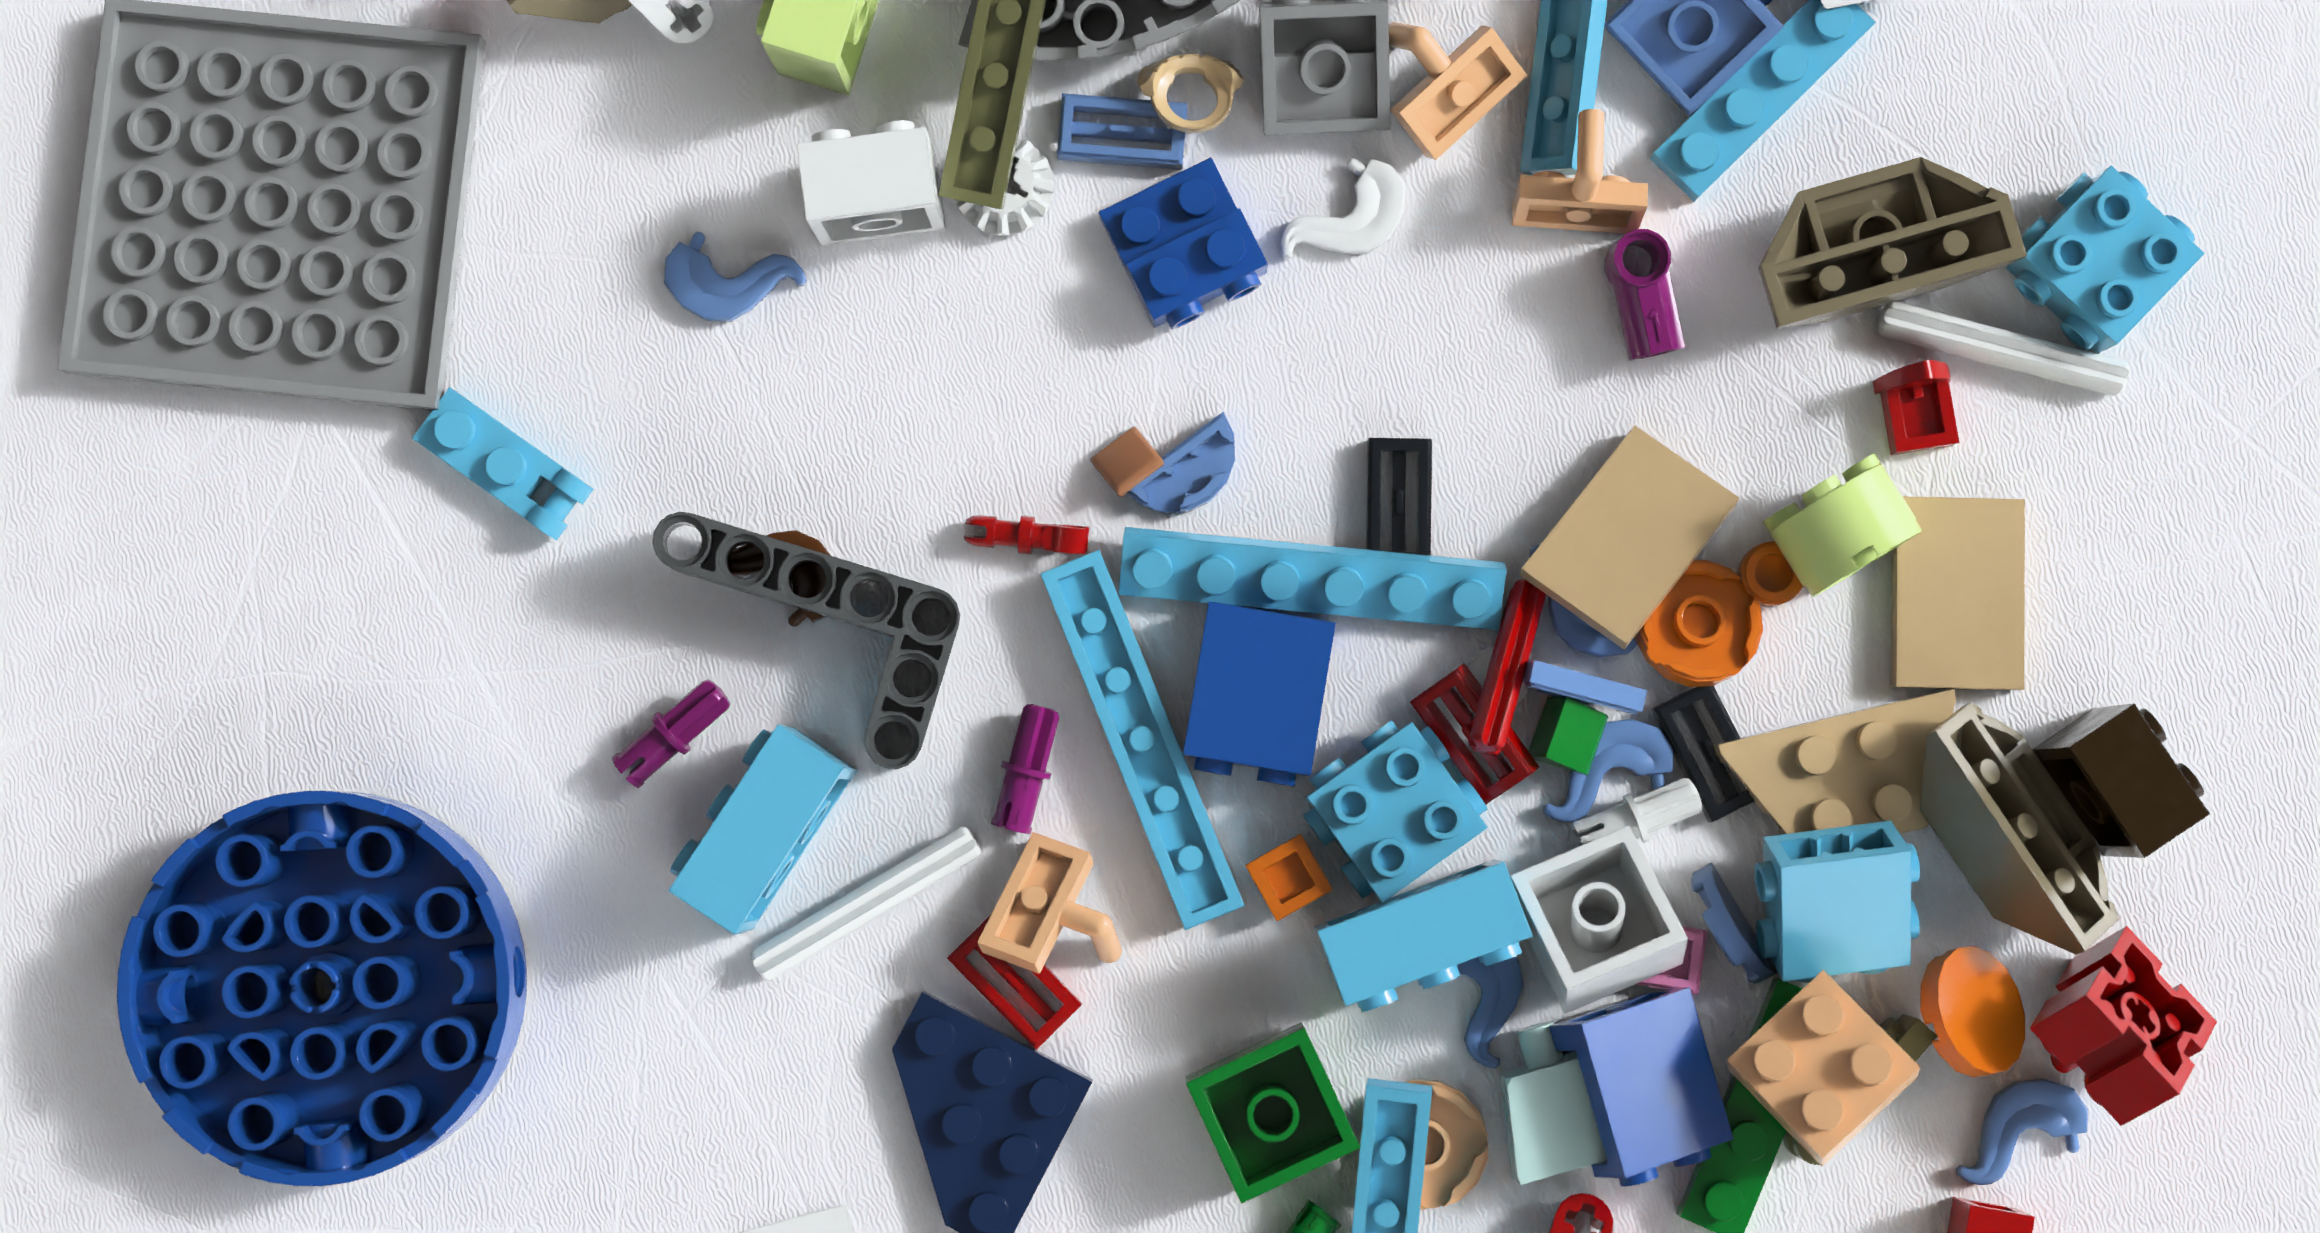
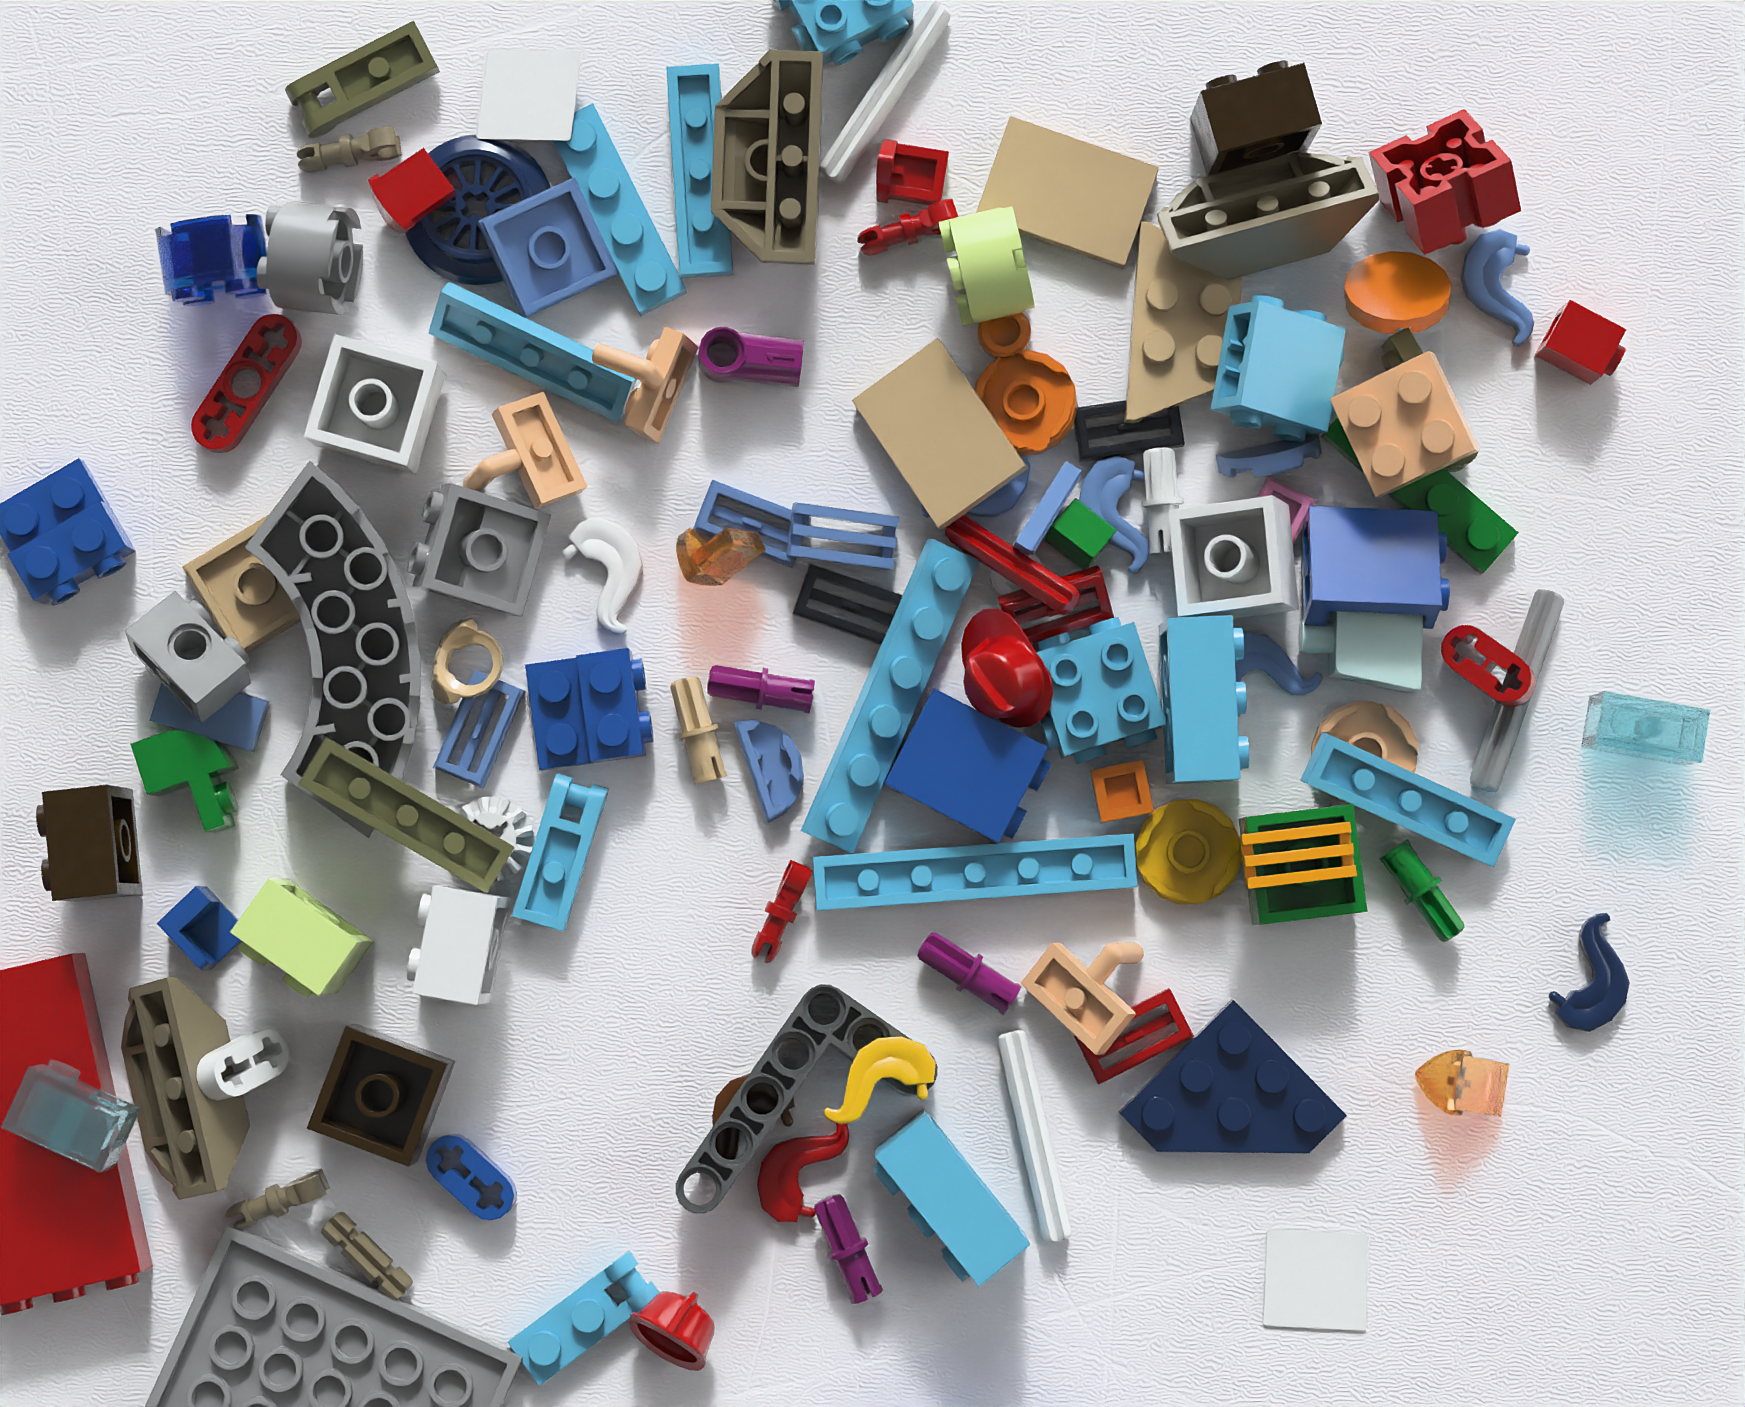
camera: 75 degrees left, 0 degrees up
(496, 201) = (366, 1256): none -> dark tan axle
(521, 568) = (675, 1329): none -> red piece
(528, 84) = (278, 1200): none -> dark tan piece
(606, 281) = (461, 1186): none -> blue beam
(677, 154) = (381, 1094): none -> dark brown brick
(716, 298) = (504, 1103): medium blue piece -> none
(739, 629) = (780, 1170): none -> red piece
(895, 700) = (883, 1058): none -> yellow piece
(1011, 266) = (559, 854): none -> medium azure plate
(1127, 461) = (748, 812): nougat piece -> none
(1200, 373) = (697, 730): none -> tan axle
(1245, 976) = (1188, 851): none -> yellow tile
(1271, 429) = (761, 688): none -> magenta axle
(1303, 1154) = (1344, 850): none -> light orange tile
(1381, 697) = (1004, 671): none -> red piece
(1403, 332) = (718, 558): none -> clear orange tile
(1453, 413) = (710, 508): none -> medium blue tile
(1485, 518) = (886, 541): none -> medium blue tile
(1761, 195) = (701, 237): none -> medium azure plate
(1830, 396) = (907, 229): none -> red piece

